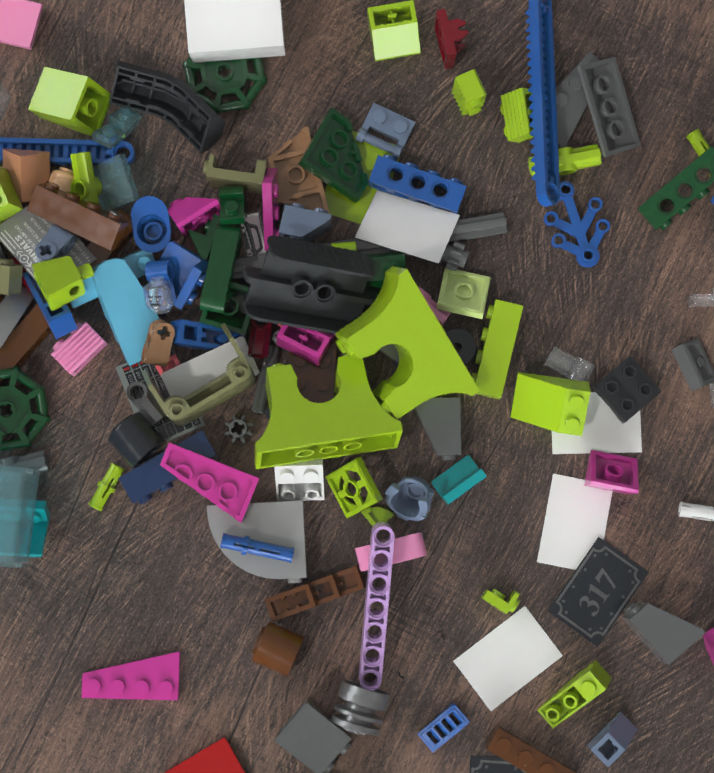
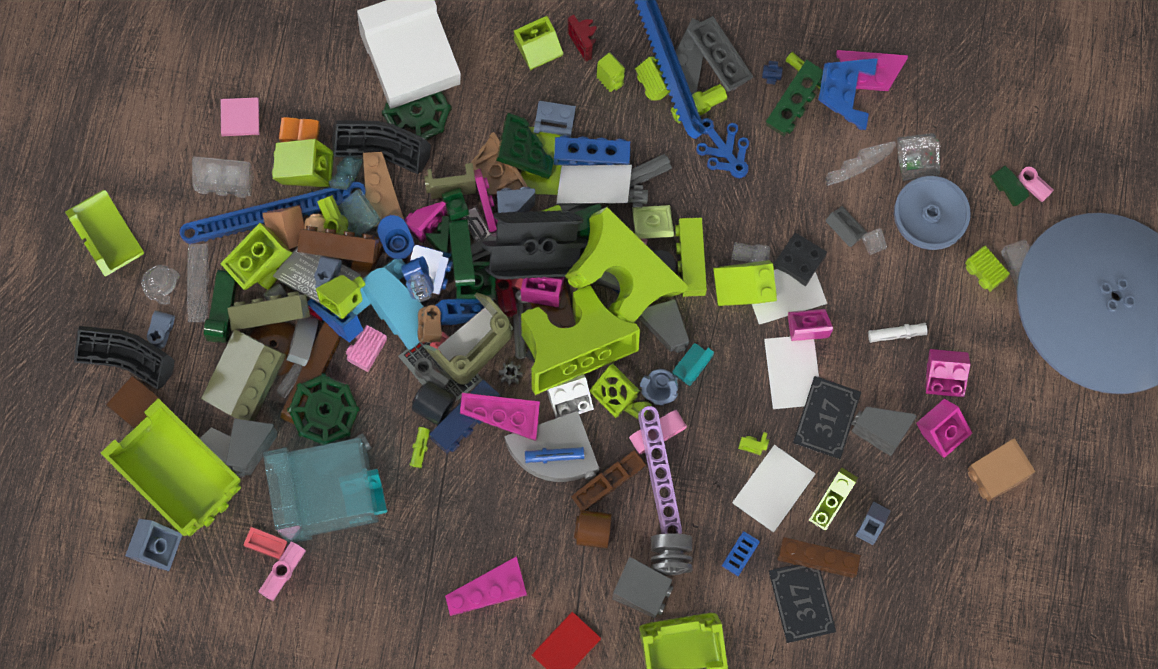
camera: 20 degrees left, 10 degrees down
(77, 59) = (298, 129): none -> orange brick
(151, 157) = (379, 186): none -> medium nougat wing
(665, 147) = (772, 72): none -> dark blue gear

